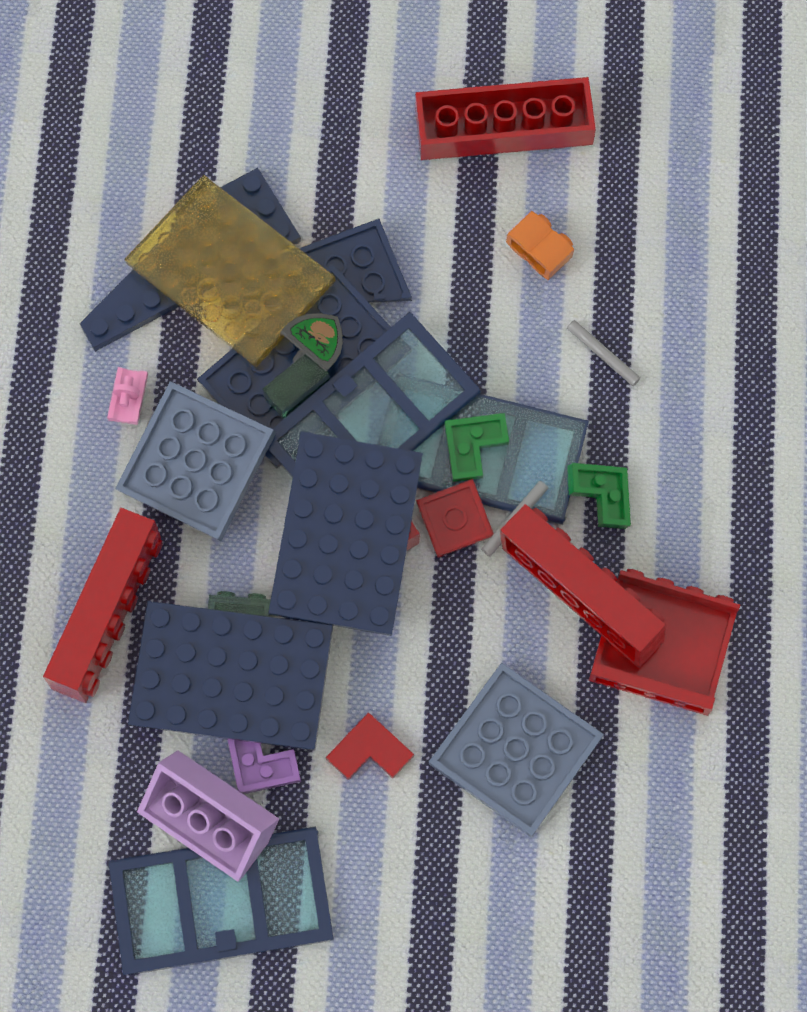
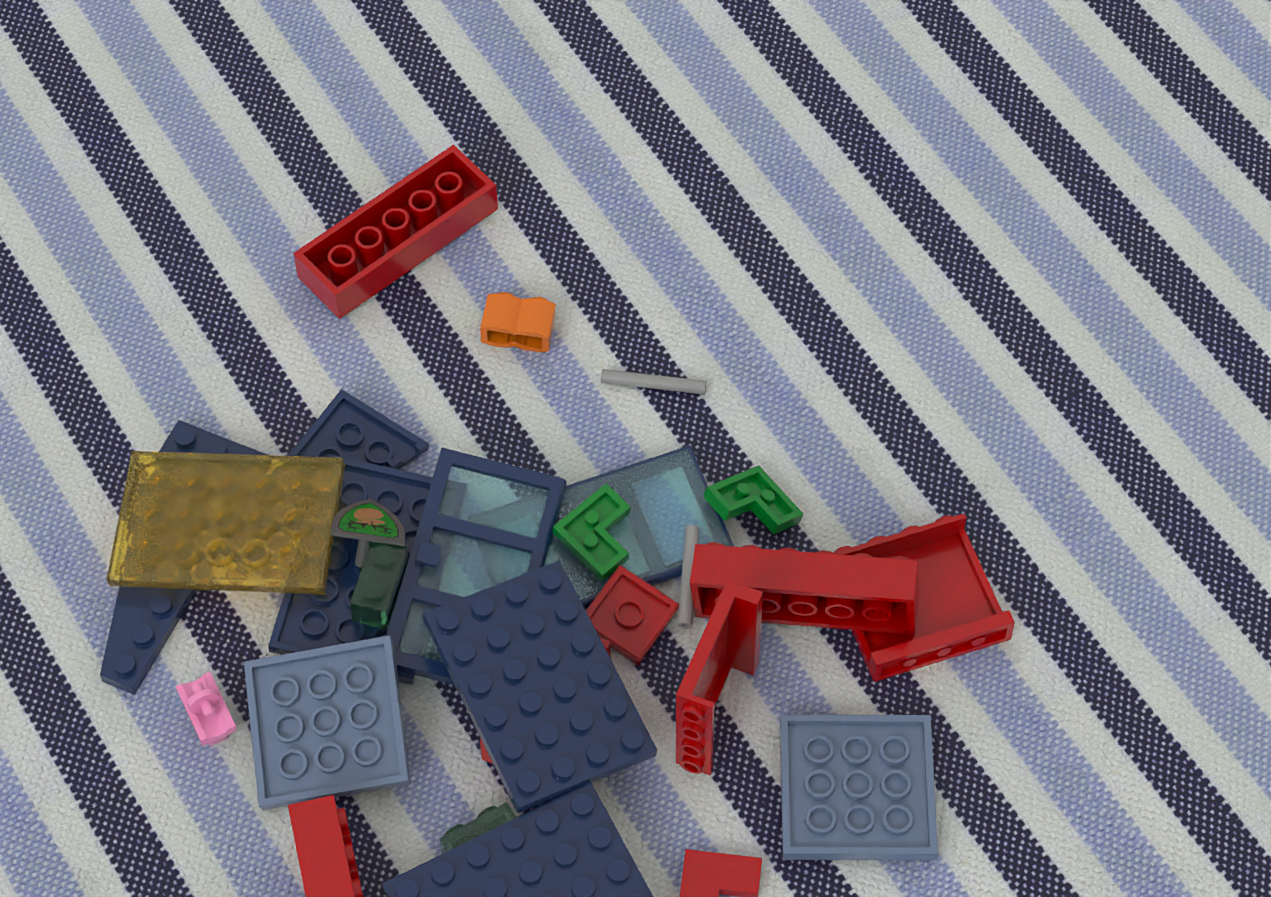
camera: 35 degrees left, 15 degrees down
(495, 585) = (726, 643): none -> red panel

